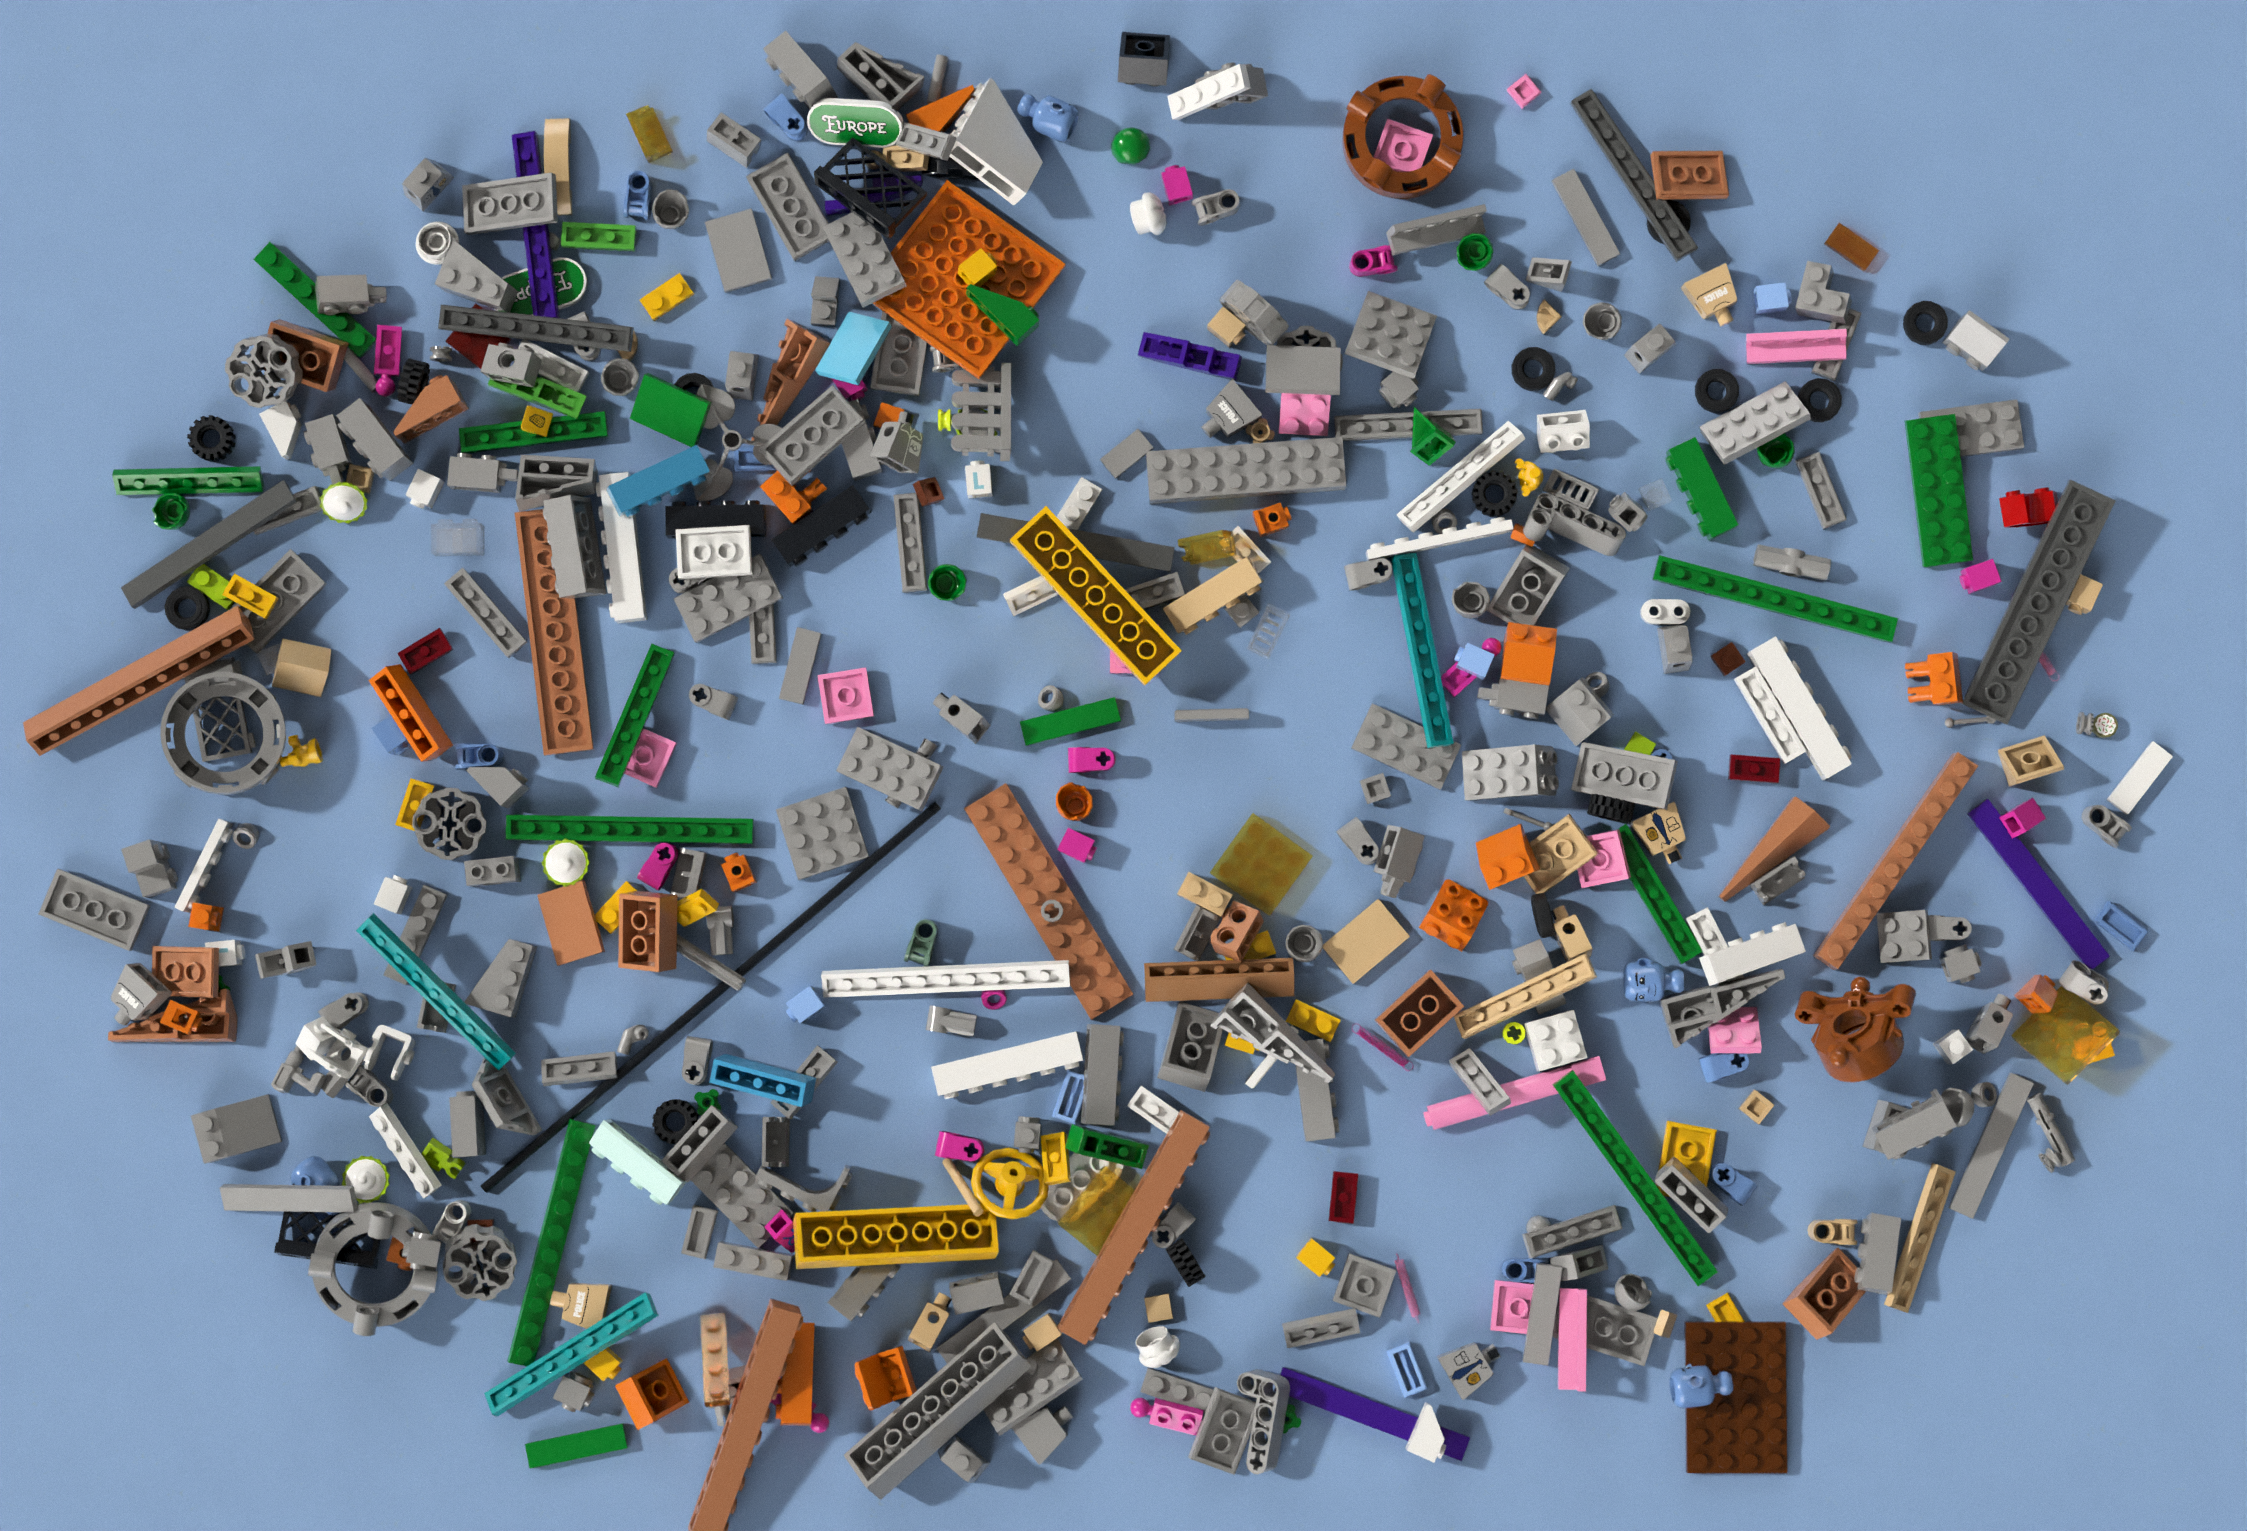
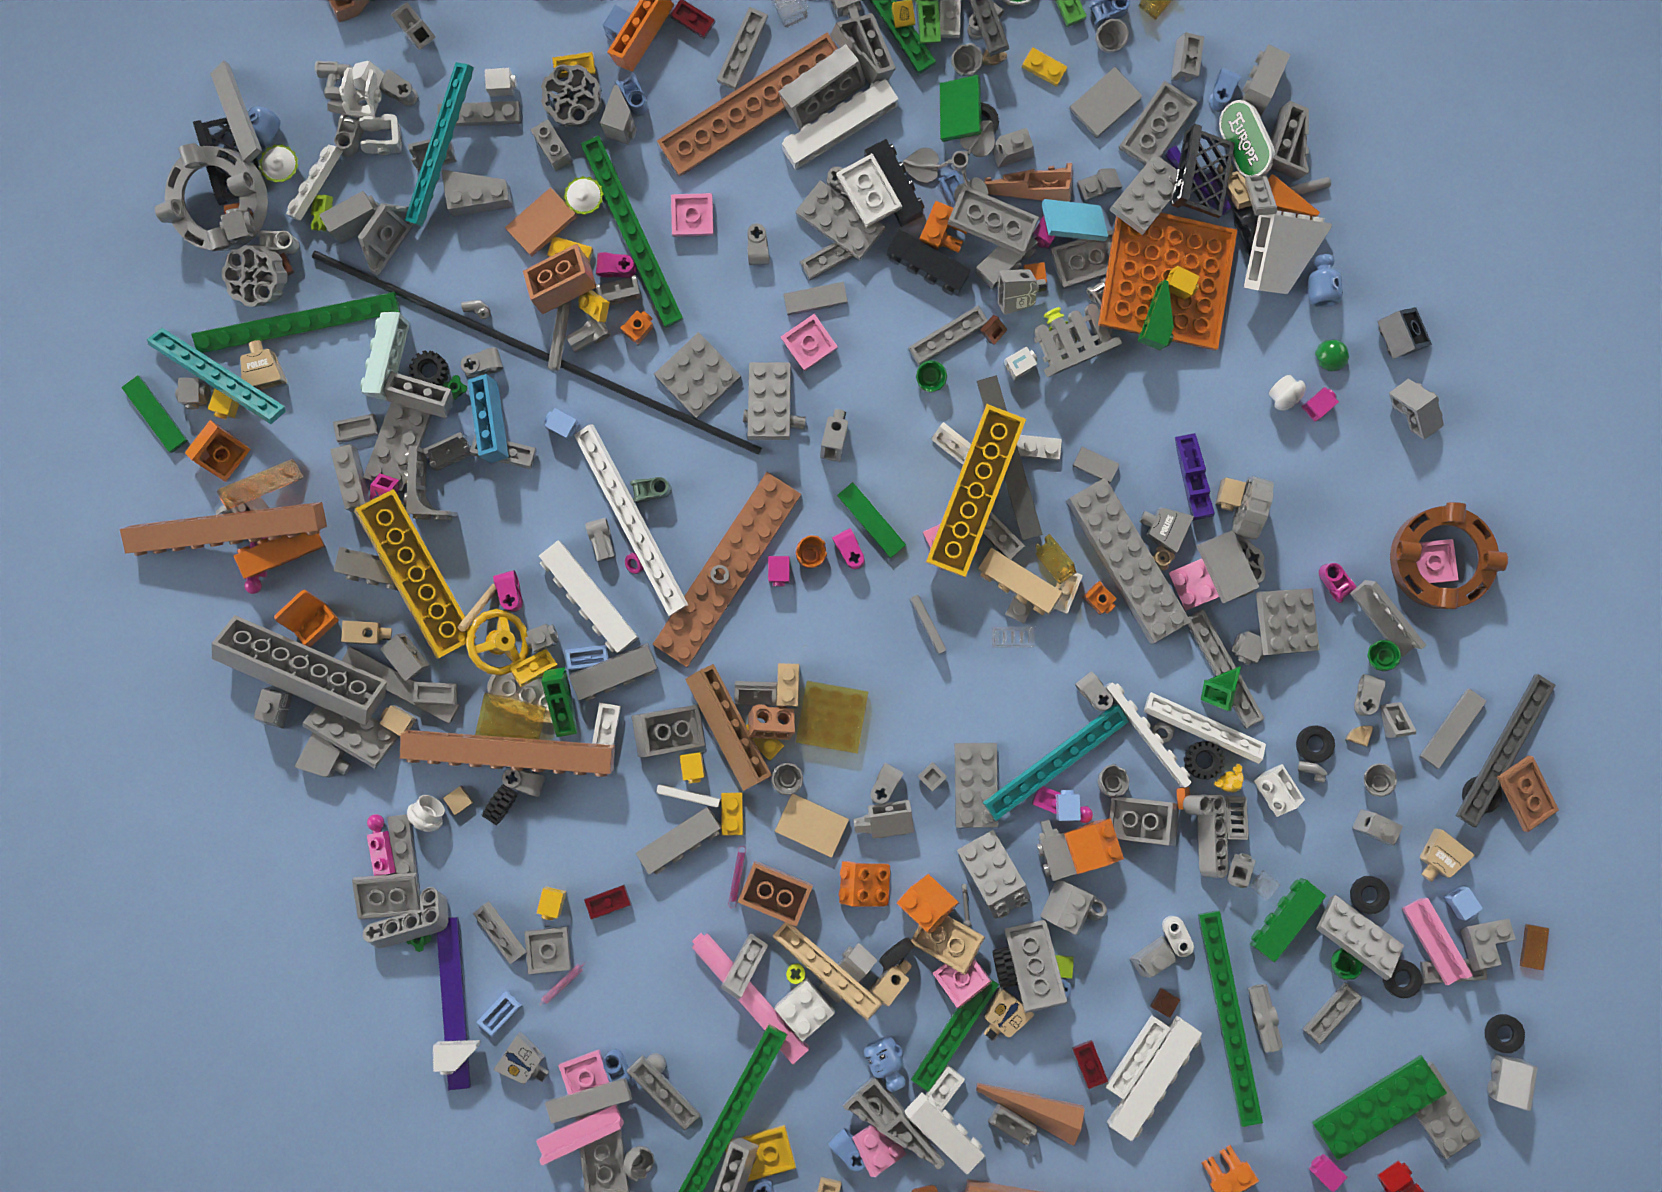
camera: 60 degrees right, 0 degrees up
(236, 1128) = (272, 52): light grey slope -> none
(579, 1068) = (435, 280): light grey plate -> none
(634, 715) = (717, 192): green plate -> none
(657, 481) = (902, 123): dark azure brick -> none
(1056, 701) = (881, 502): light grey piece -> none
(1209, 92) = (1406, 392): white plate -> none
(1214, 206) = (1317, 441): light grey piece -> none
(1257, 1022) = (708, 771): light grey wedge -> none
(1523, 91) = (1526, 634): bright pink tile -> none
(1581, 1262) = (642, 1110): light grey slope -> none

